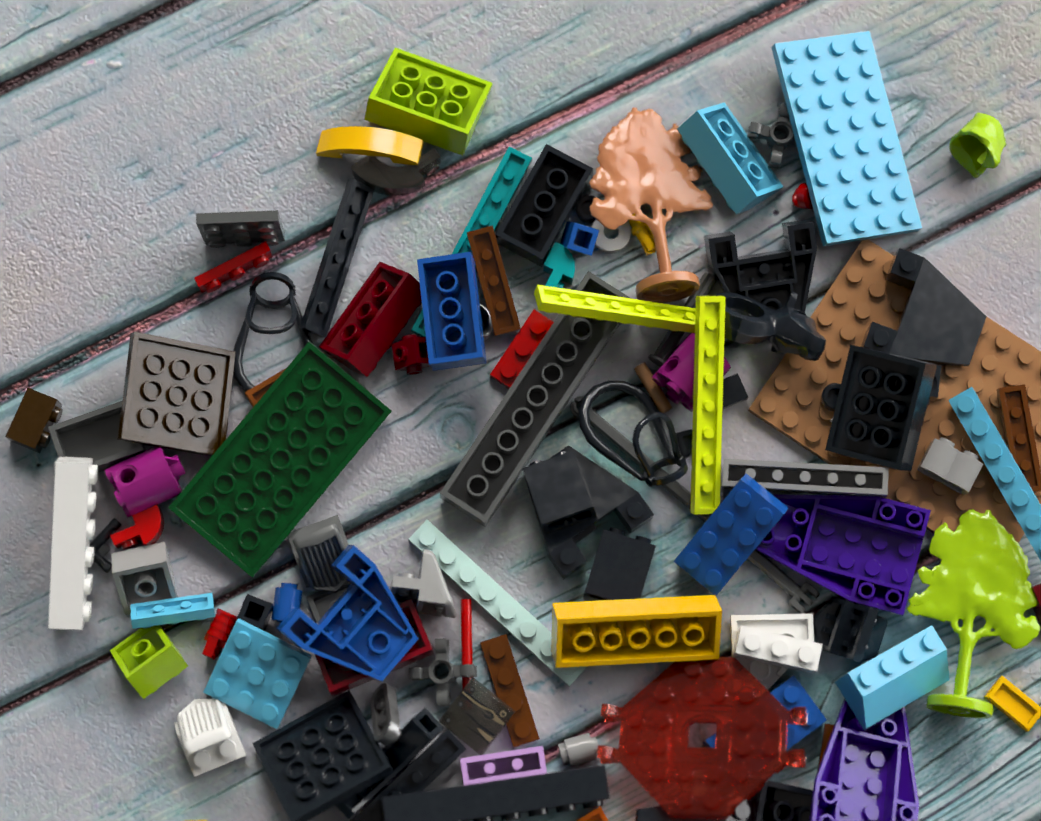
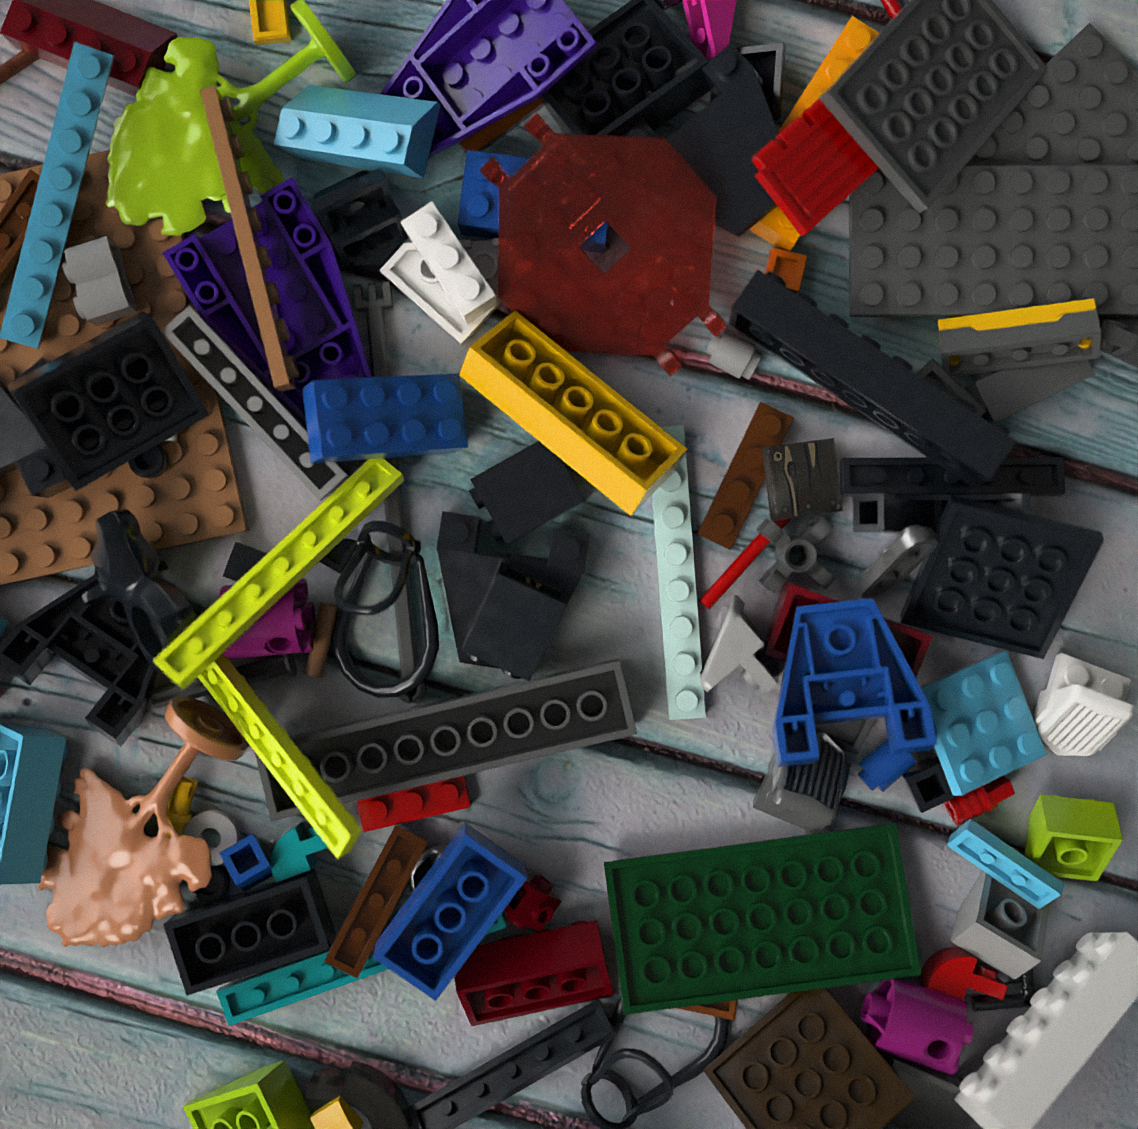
camera: 130 degrees left, 10 degrees up
(503, 765) = (825, 406): lavender brick -> none
(900, 566) = (246, 225): none -> medium nougat plate

